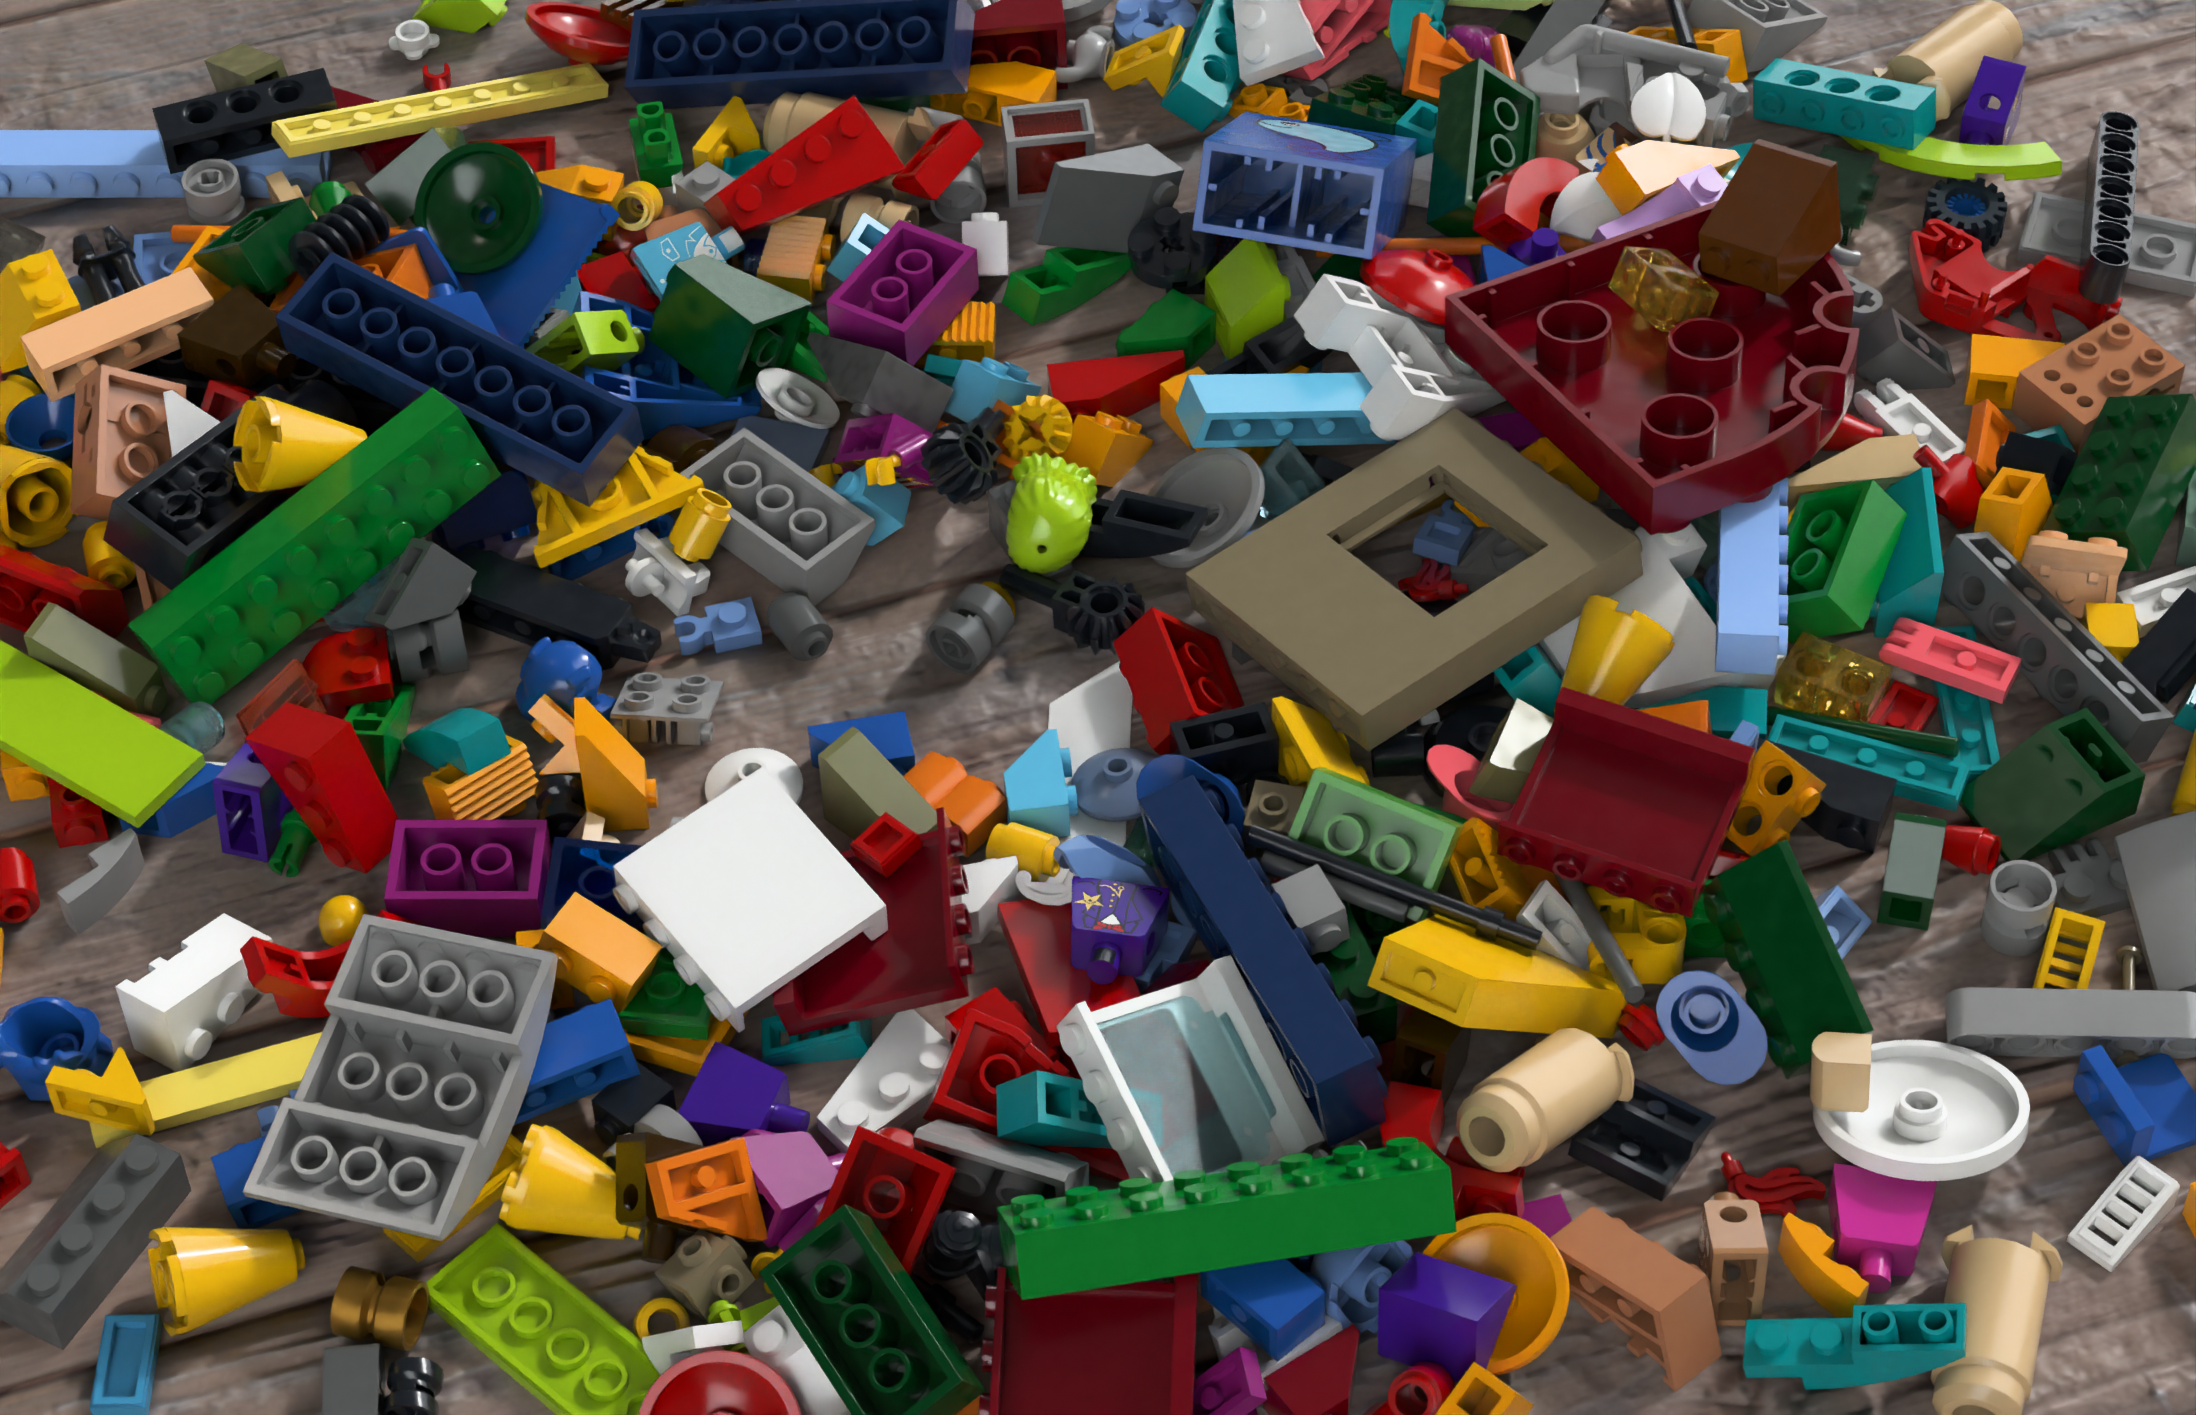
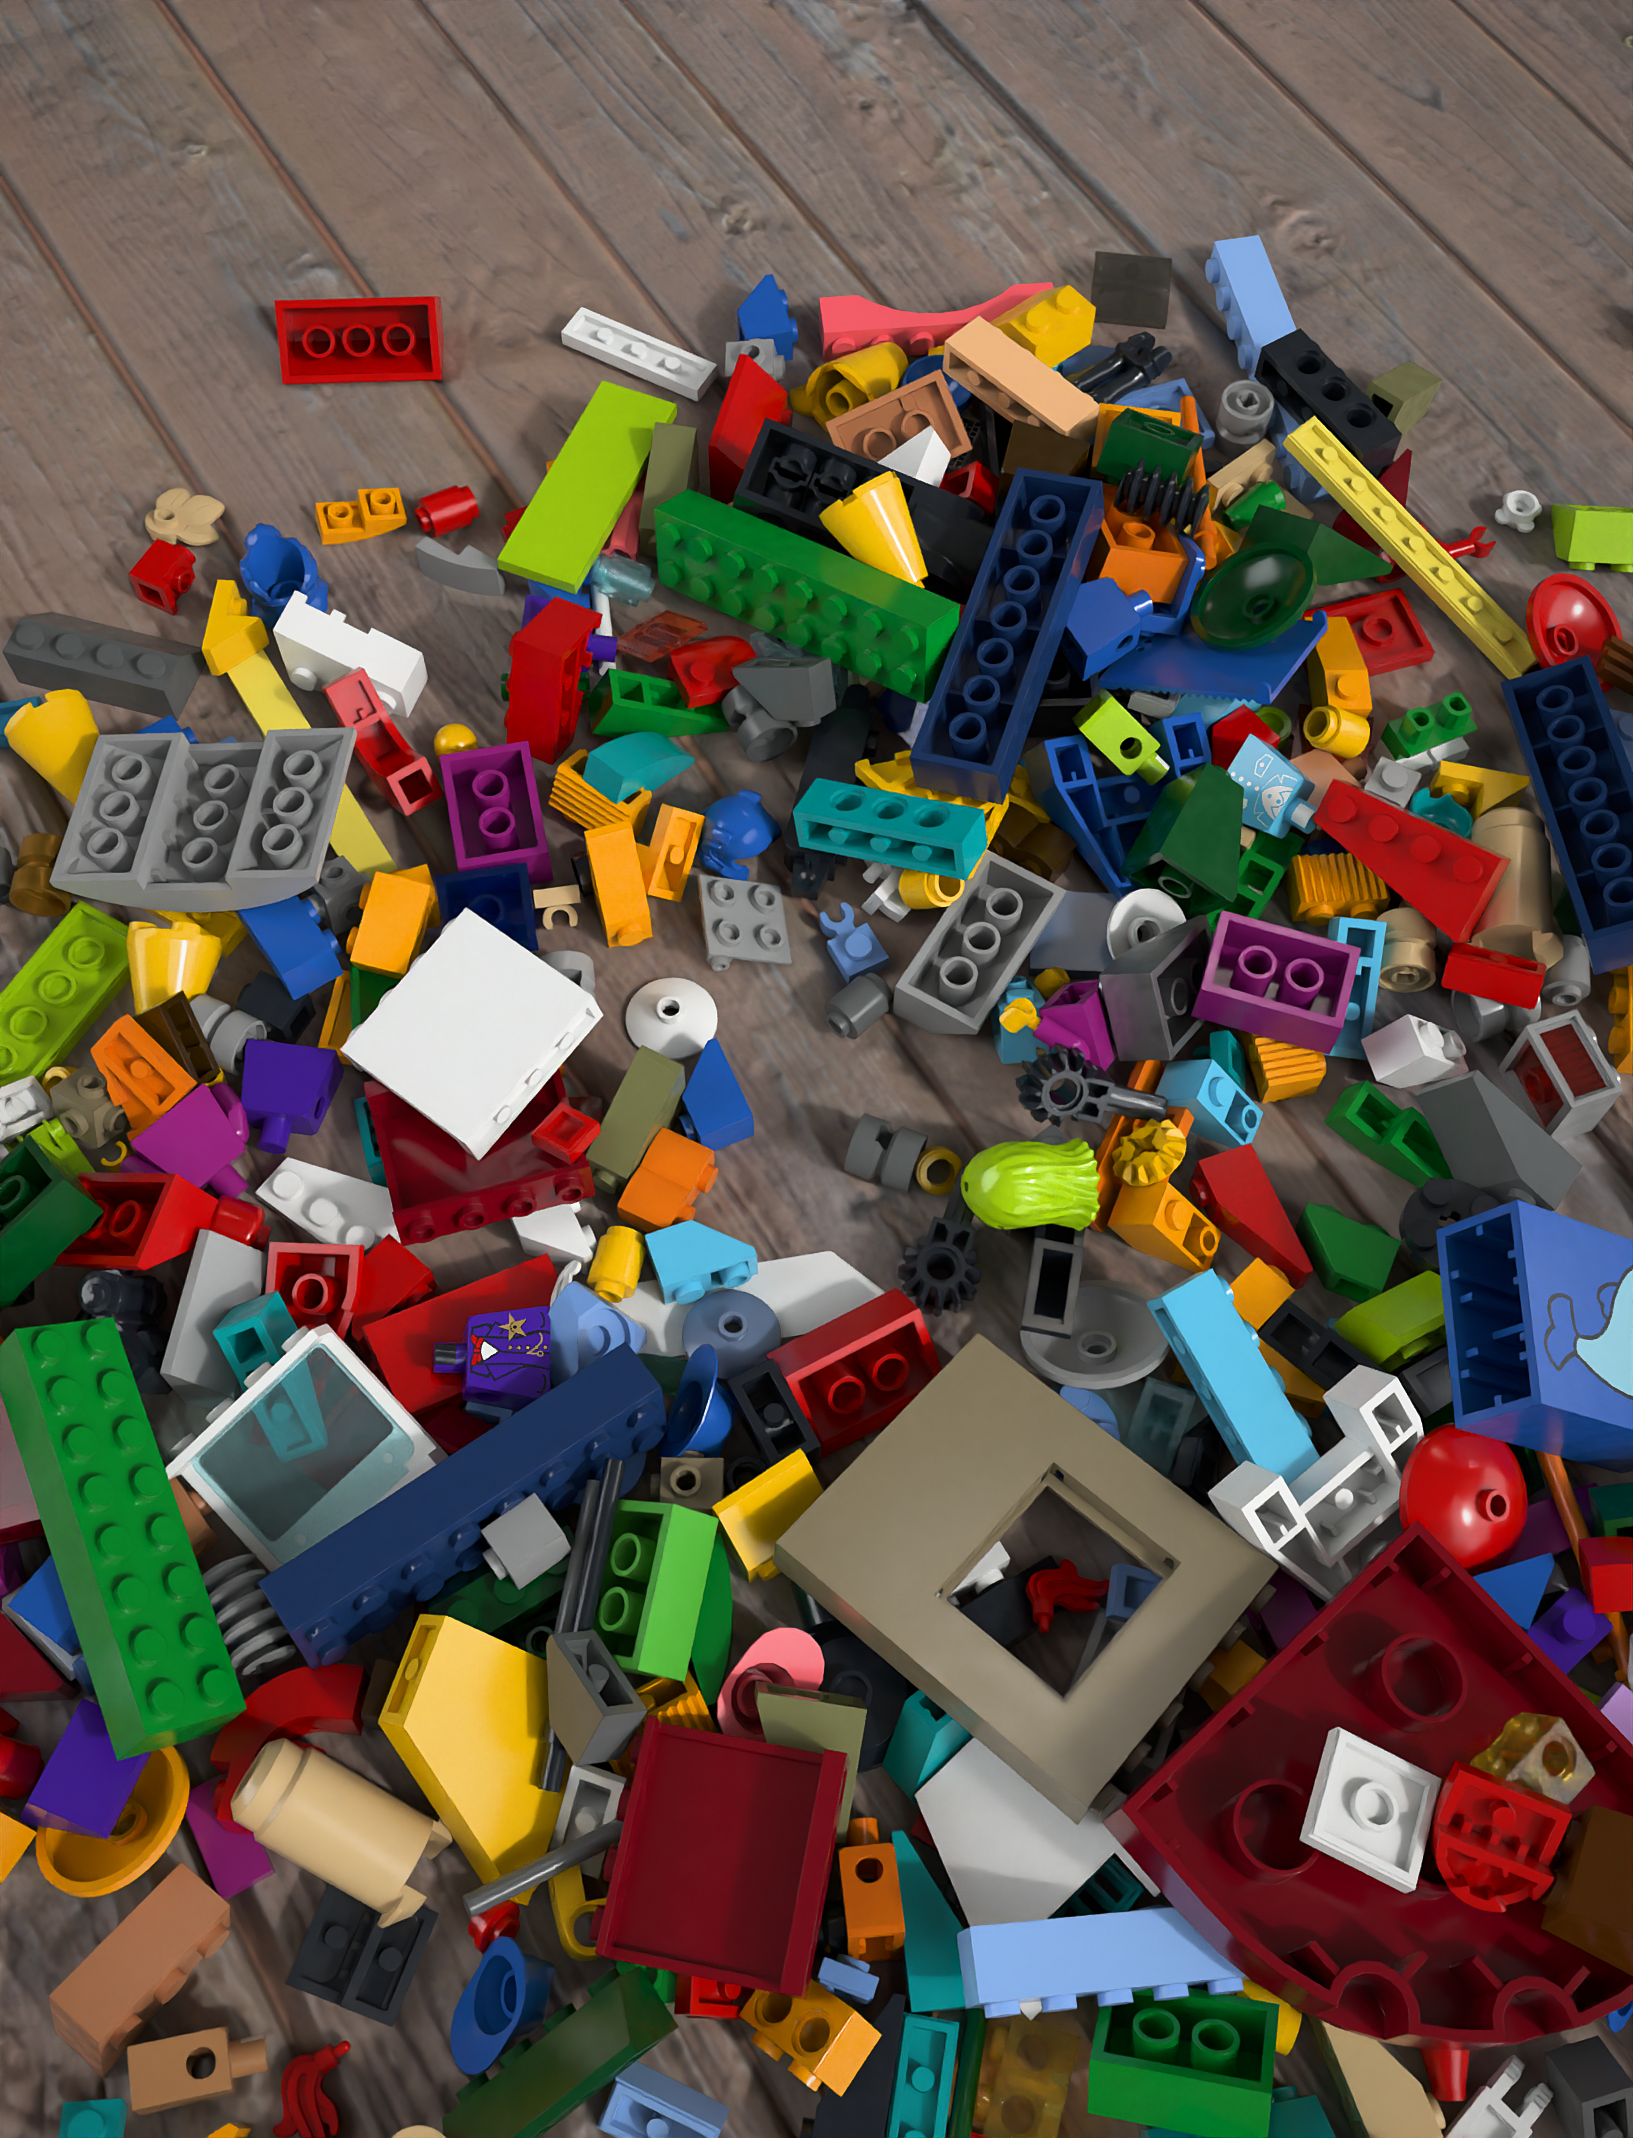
camera: 75 degrees right, 15 degrees up
(640, 524) = (891, 828): none -> teal brick
(1475, 872) = (590, 1698): none -> dark grey slope
(1614, 651) = (940, 1806): yellow cone -> none
(1677, 357) = (1371, 1810): none -> white tile
(1712, 295) = (1495, 1838): none -> red slope

